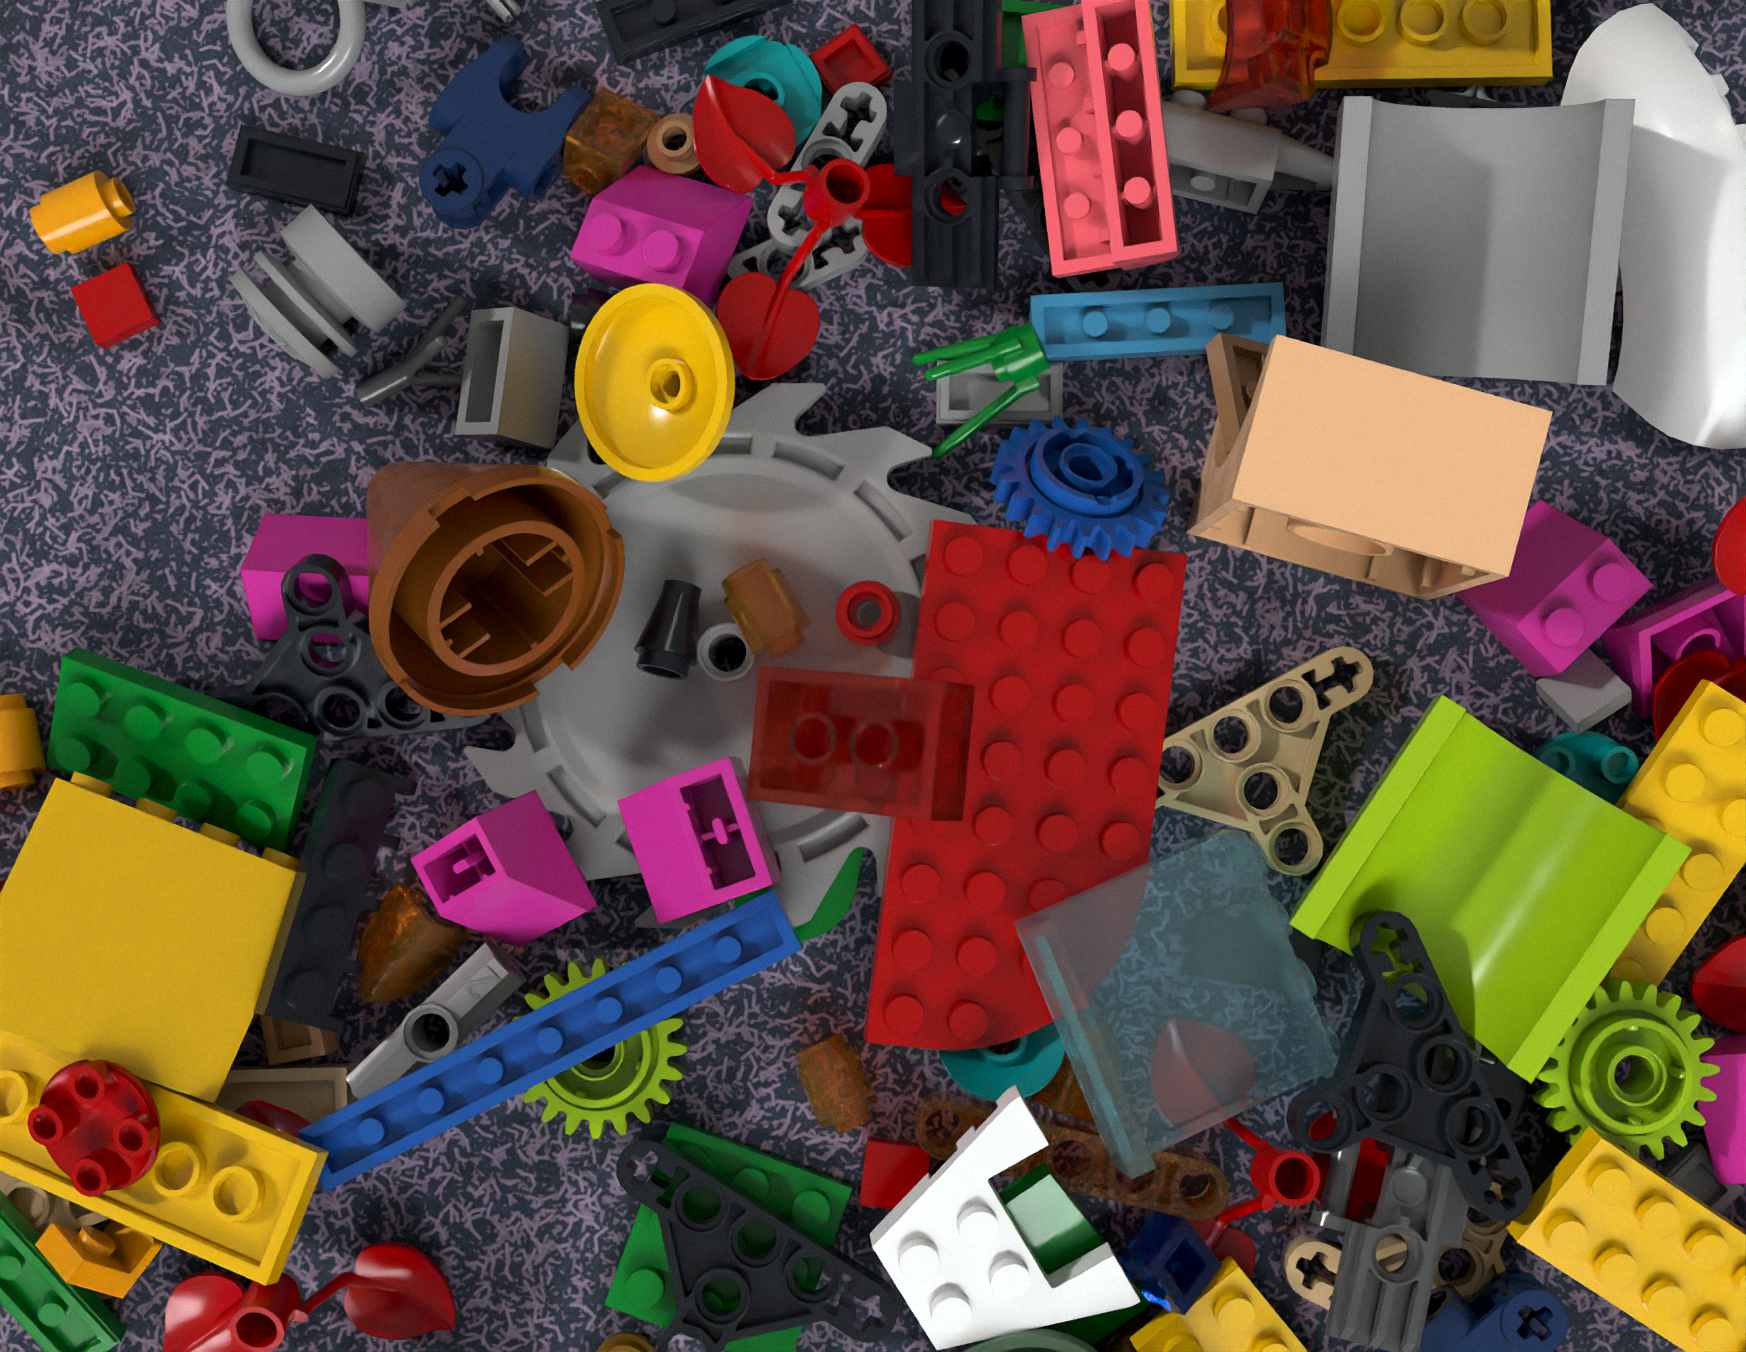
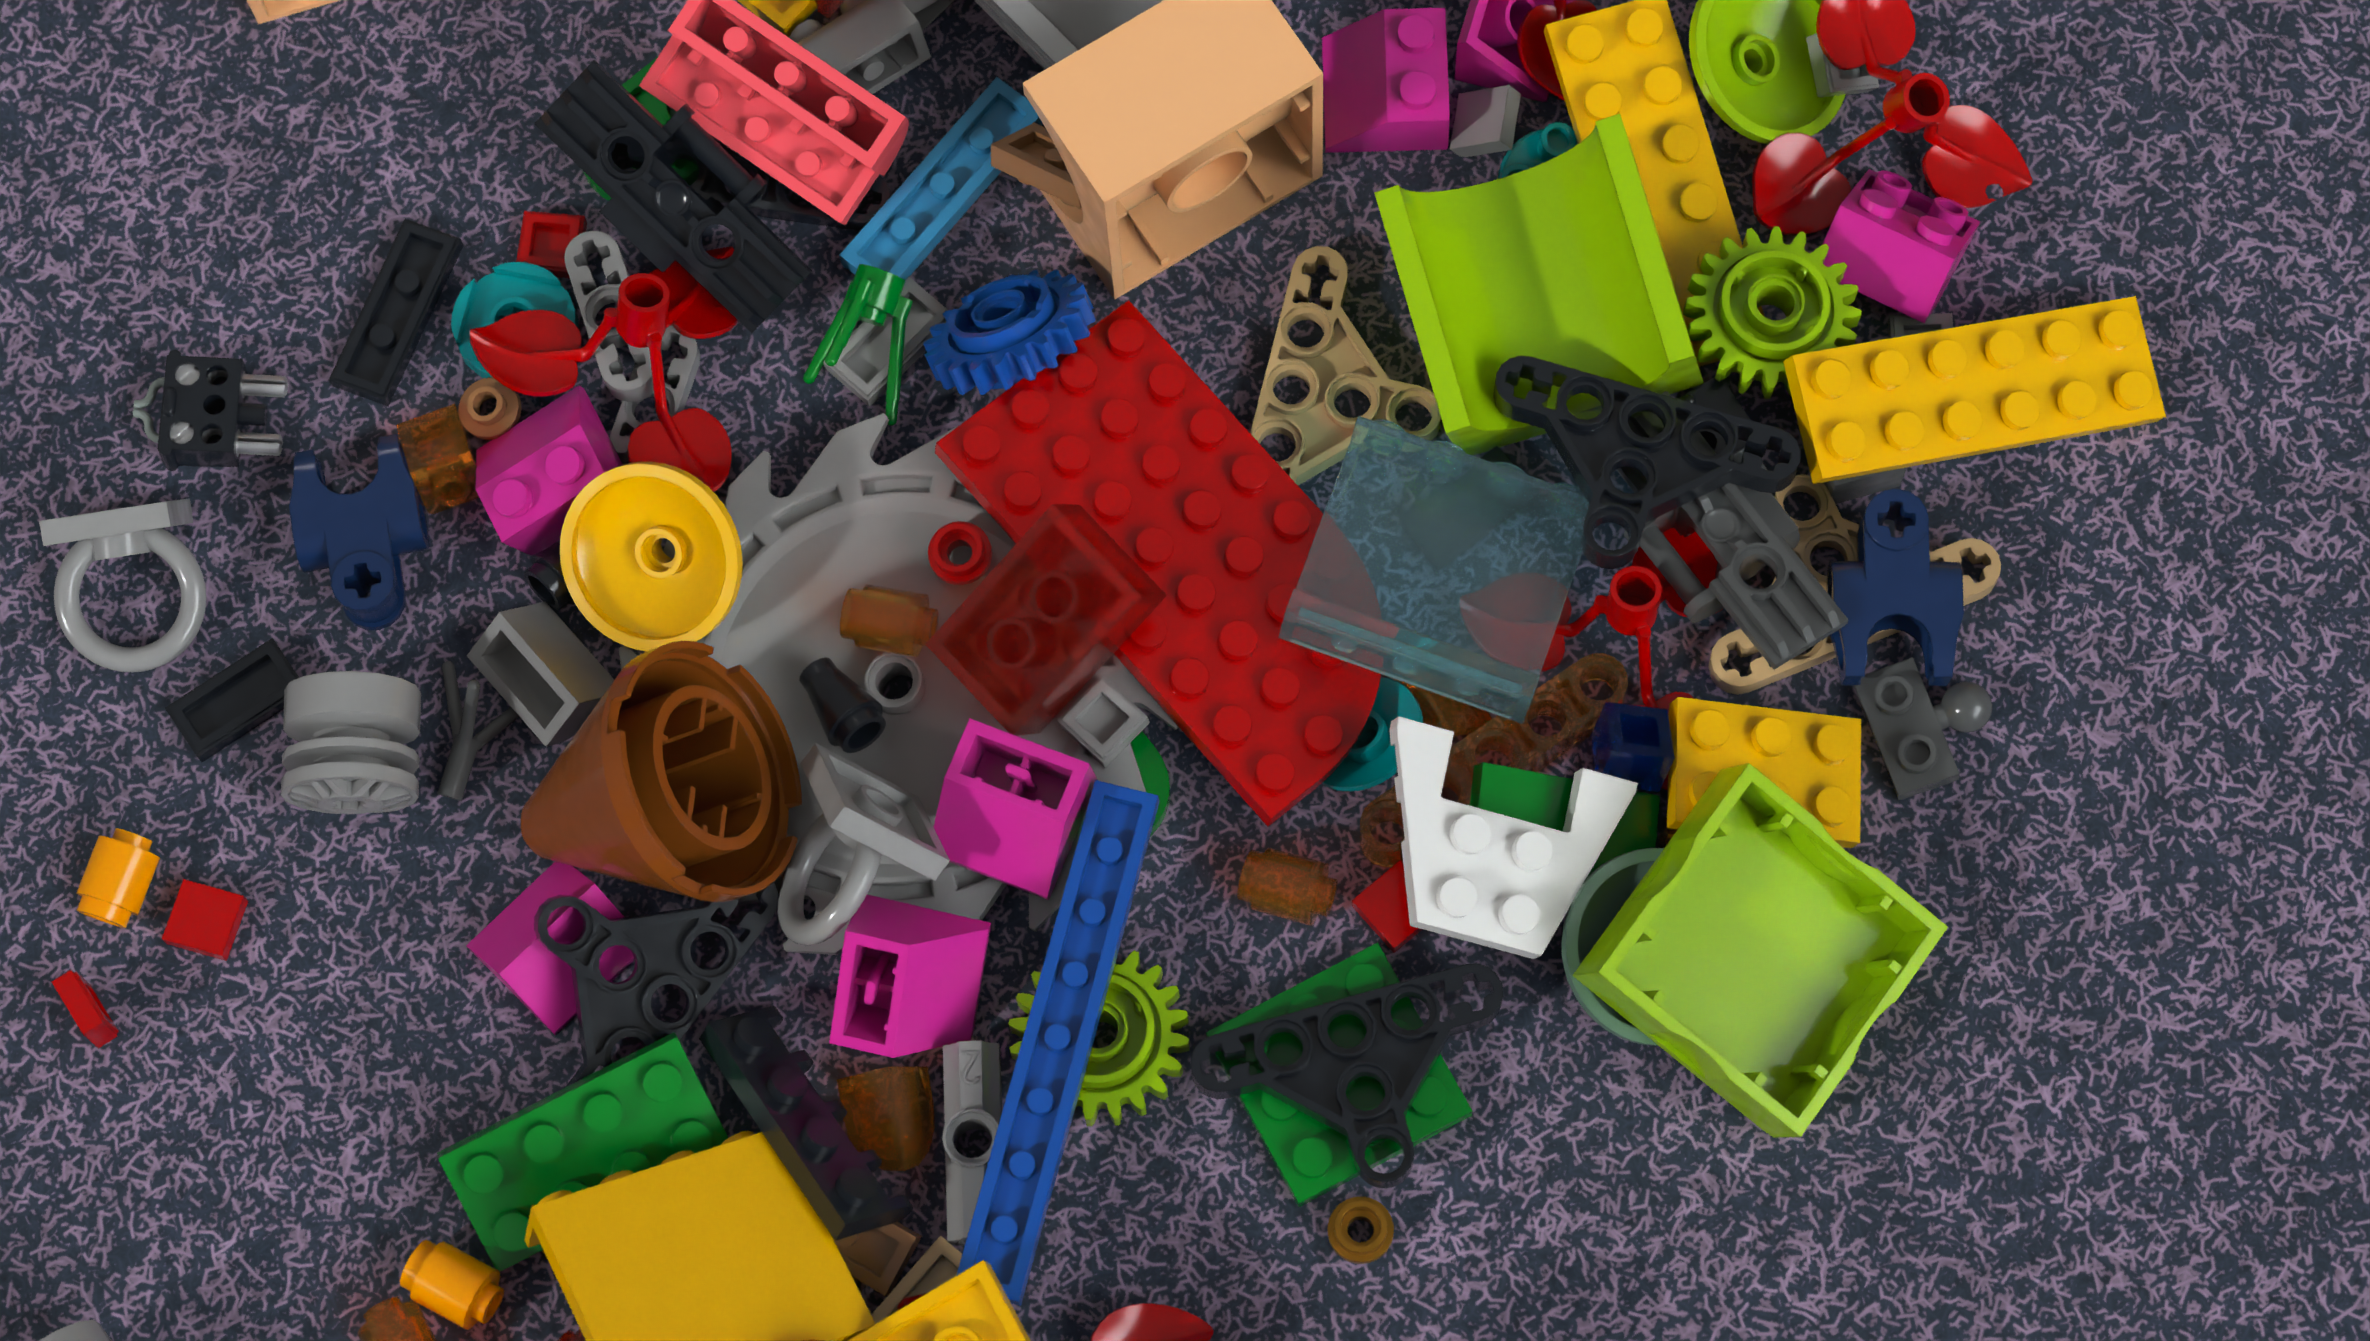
camera: 40 degrees left, 15 degrees down
(586, 751) = (869, 818): none -> light grey tile
(832, 842) = (1103, 721): none -> light grey tile

